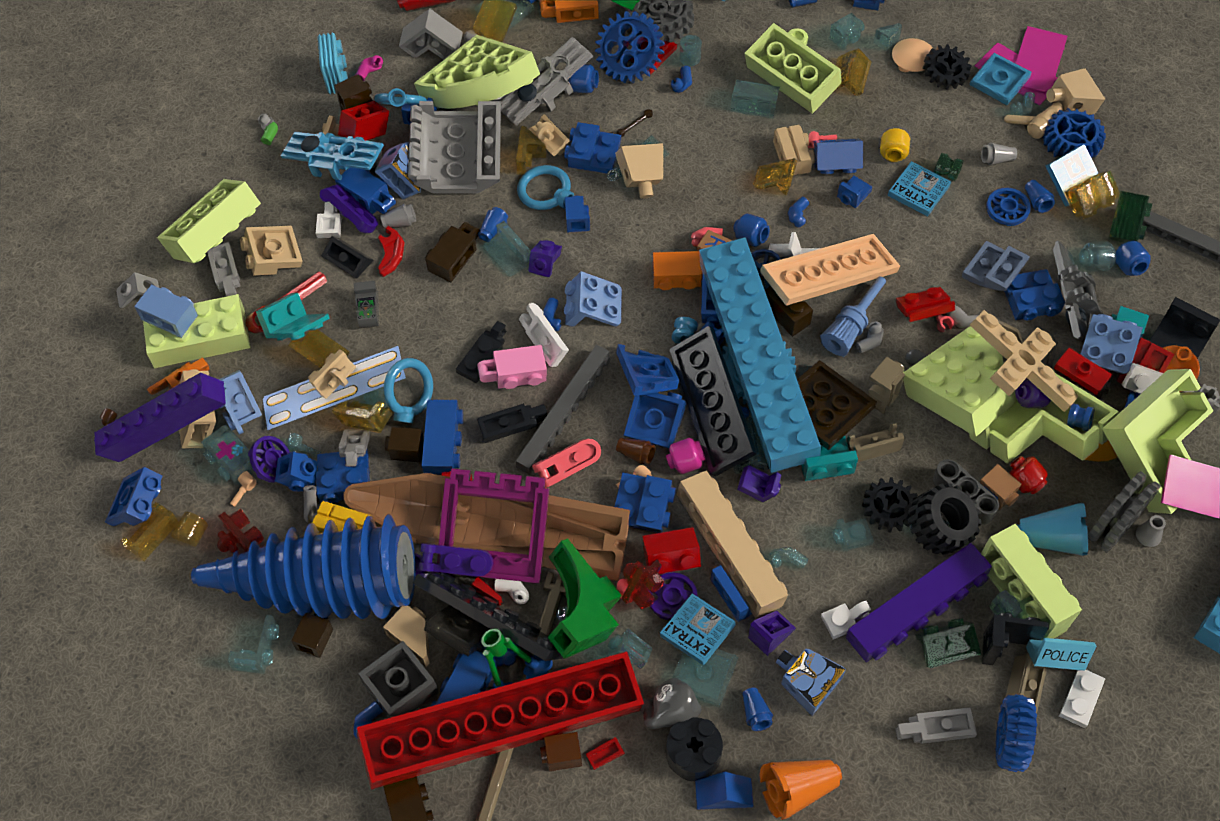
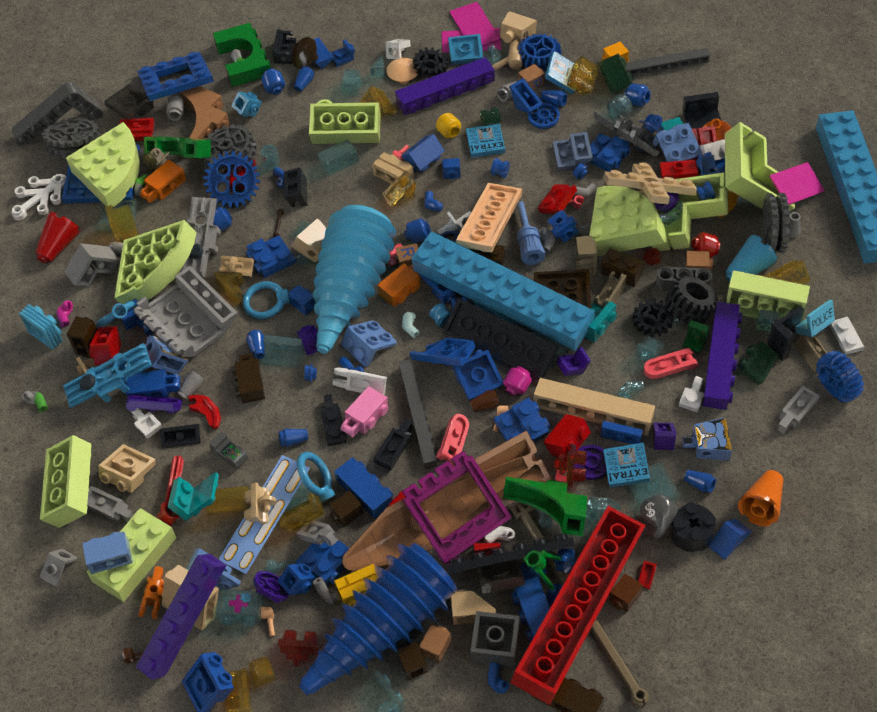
camera: 40 degrees left, 5 degrees down
(348, 637) = (435, 643): none -> medium nougat brick
(432, 337) = (291, 437): none -> blue cone
(456, 560) = (454, 543): dark purple plate -> none
(510, 289) = (310, 372): none -> blue plate
(637, 216) = (349, 268): none -> medium azure cone
(646, 314) = (407, 324): none -> light aqua arm
(683, 99) = (295, 187): none -> black hinge
(856, 566) = (670, 364): none -> coral plate
(898, 336) = (566, 228): none -> blue brick
(901, 227) = (500, 168): none -> blue wheel
(911, 562) = (695, 337): none -> dark green bracket
(915, 426) = (622, 264): none -> dark brown brick
(929, 24) = (394, 48): none -> white bracket
(937, 101) = (445, 86): none -> dark purple brick
(961, 436) = (652, 252): none -> clear red plate
(982, 294) = (580, 171): none -> blue plate
(1004, 171) = (524, 97): none -> blue slope
(1018, 414) = (672, 216): none -> clear light blue arm
(1035, 157) = (533, 76): none -> medium nougat brick
(1087, 581) = (793, 271): none -> clear yellow panel
(1108, 300) = (652, 123): none -> blue hinge
(1118, 386) = (706, 163): none -> blue hinge
(1159, 195) = (615, 49): none -> light orange brick

